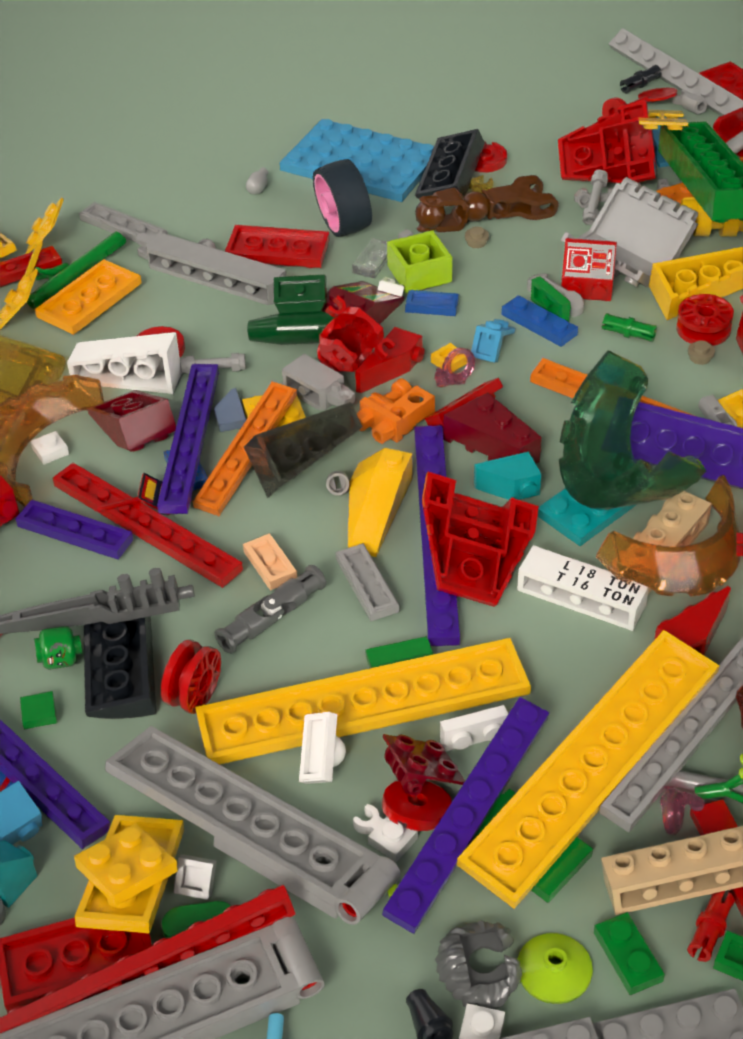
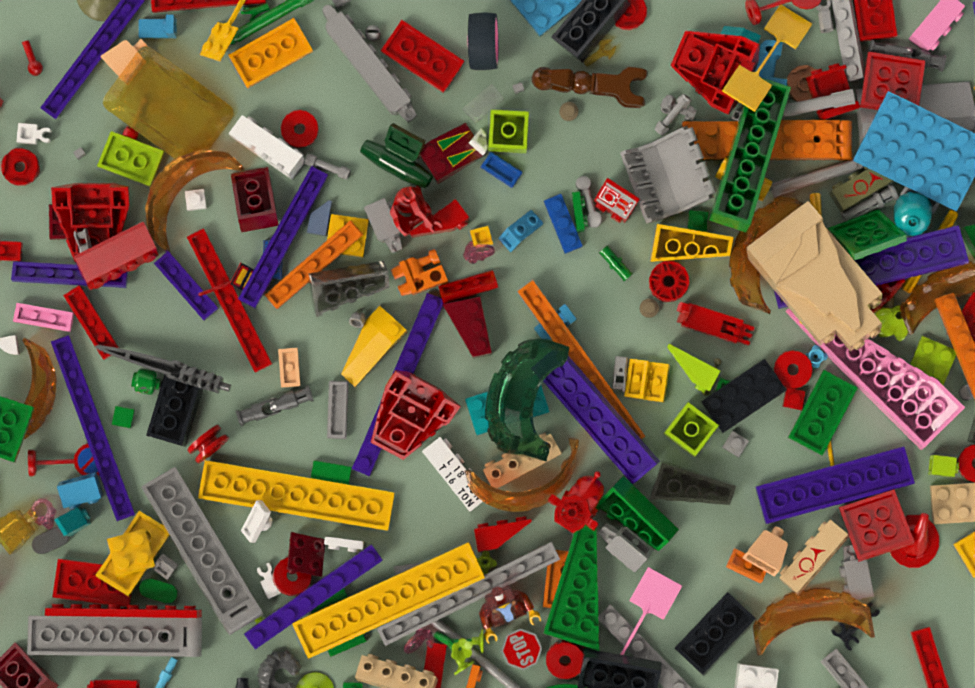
camera: 25 degrees right, 40 degrees up
(509, 477) = (463, 368): teal slope -> none

